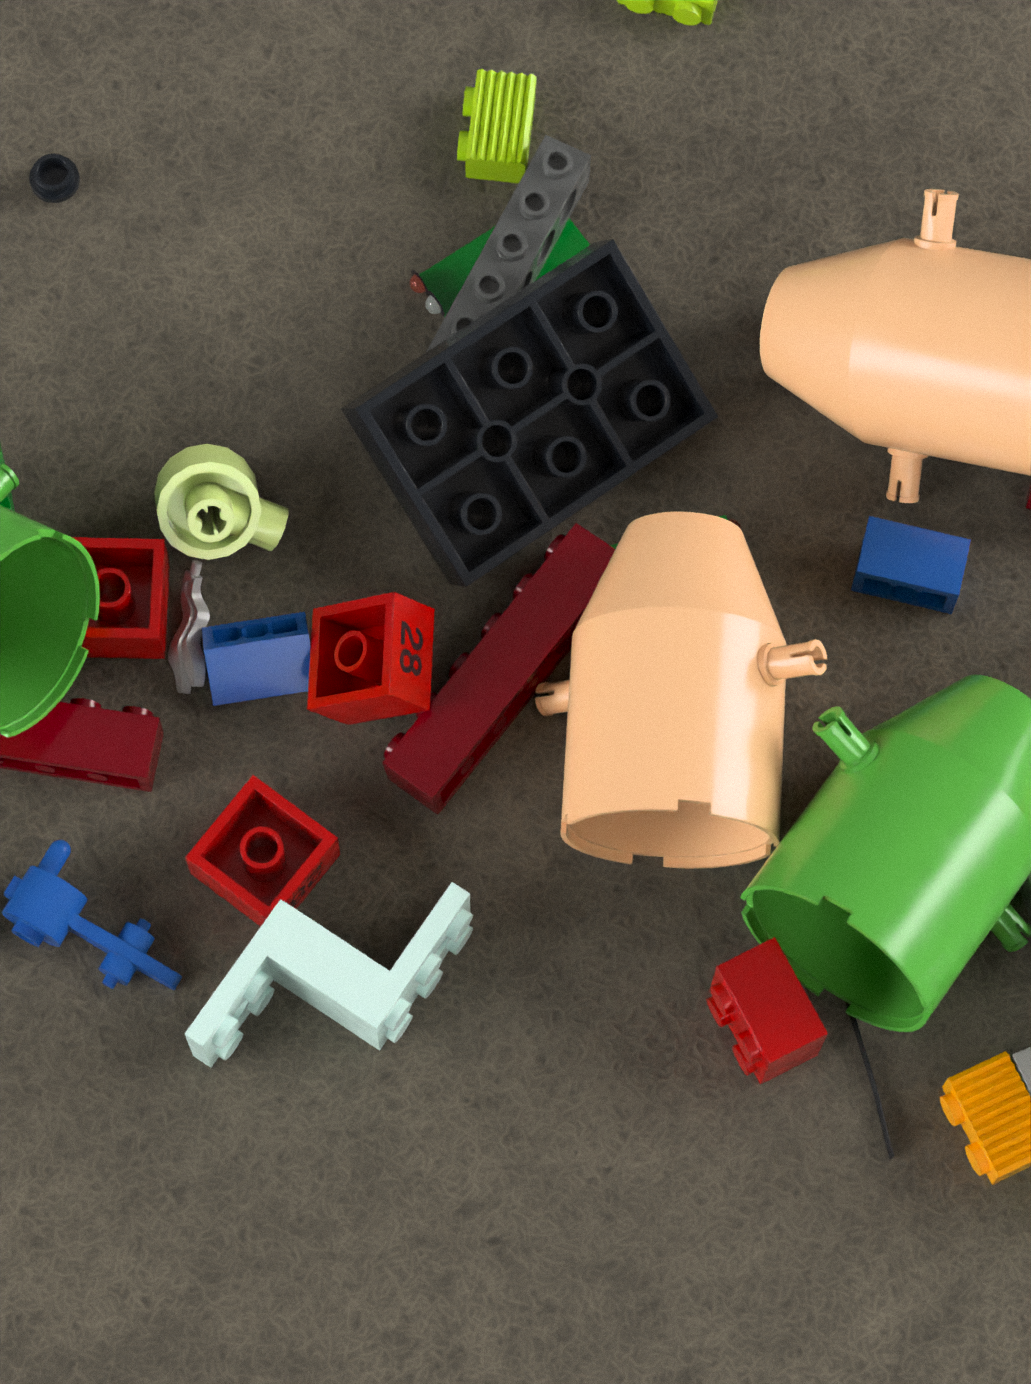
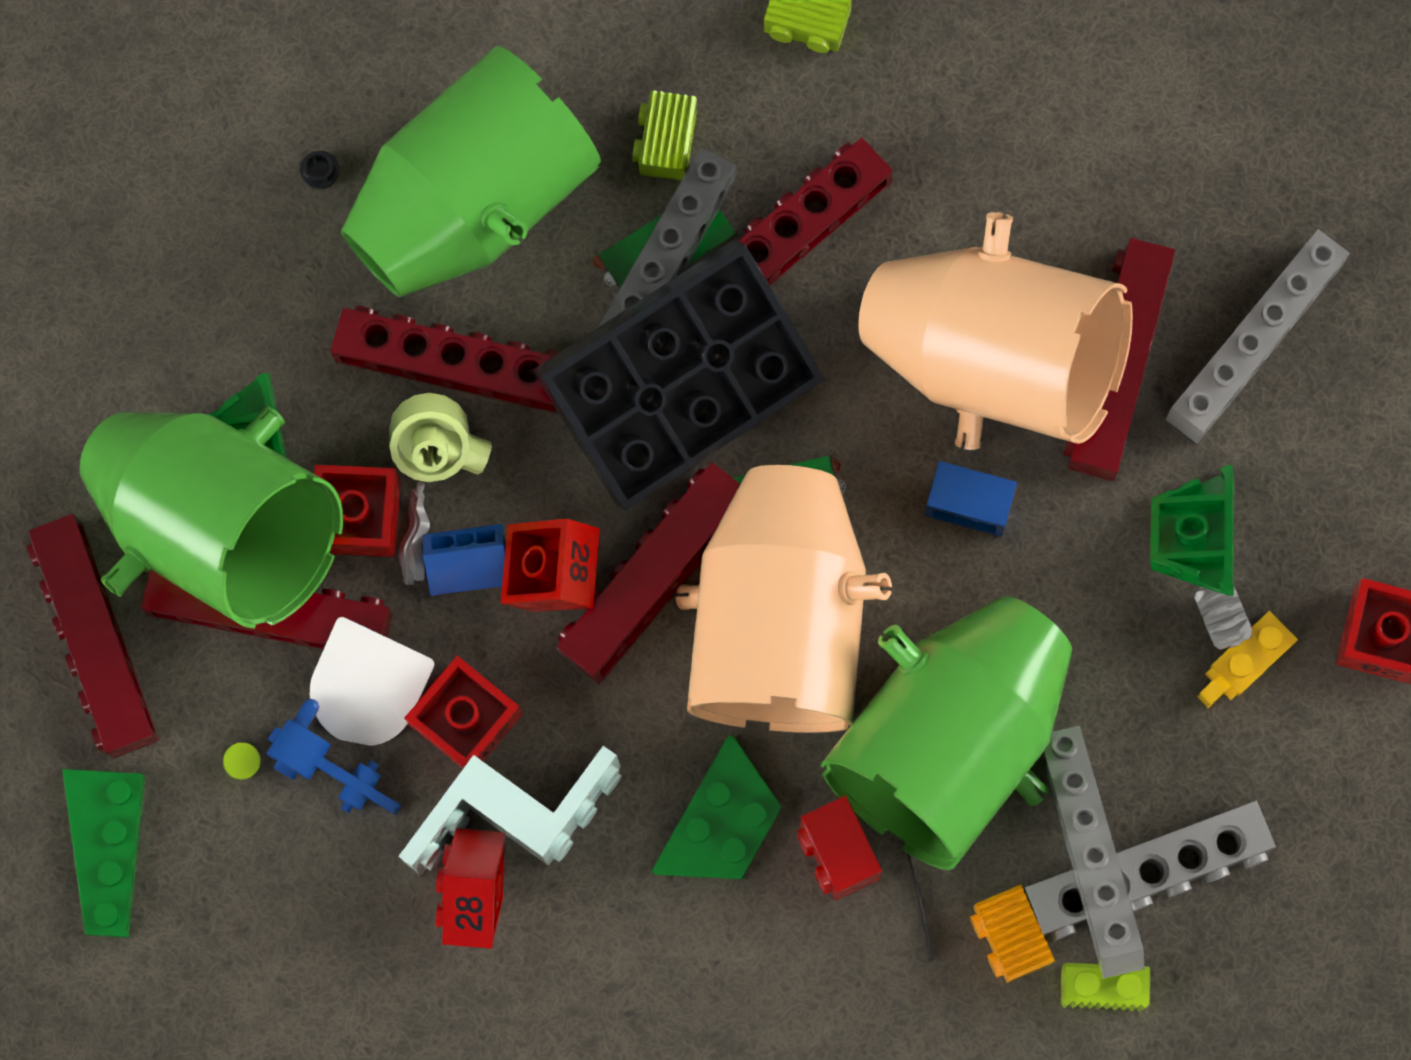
camera: 10 degrees right, 5 degrees up
(133, 819) = (366, 684): none -> white sticker
(251, 169) = (467, 177): none -> bright green piece
(281, 1076) = (471, 888): none -> red brick
(304, 438) = (362, 323): none -> dark red brick
(608, 984) = (722, 821): none -> green wing
(743, 154) = (854, 161): none -> dark red brick

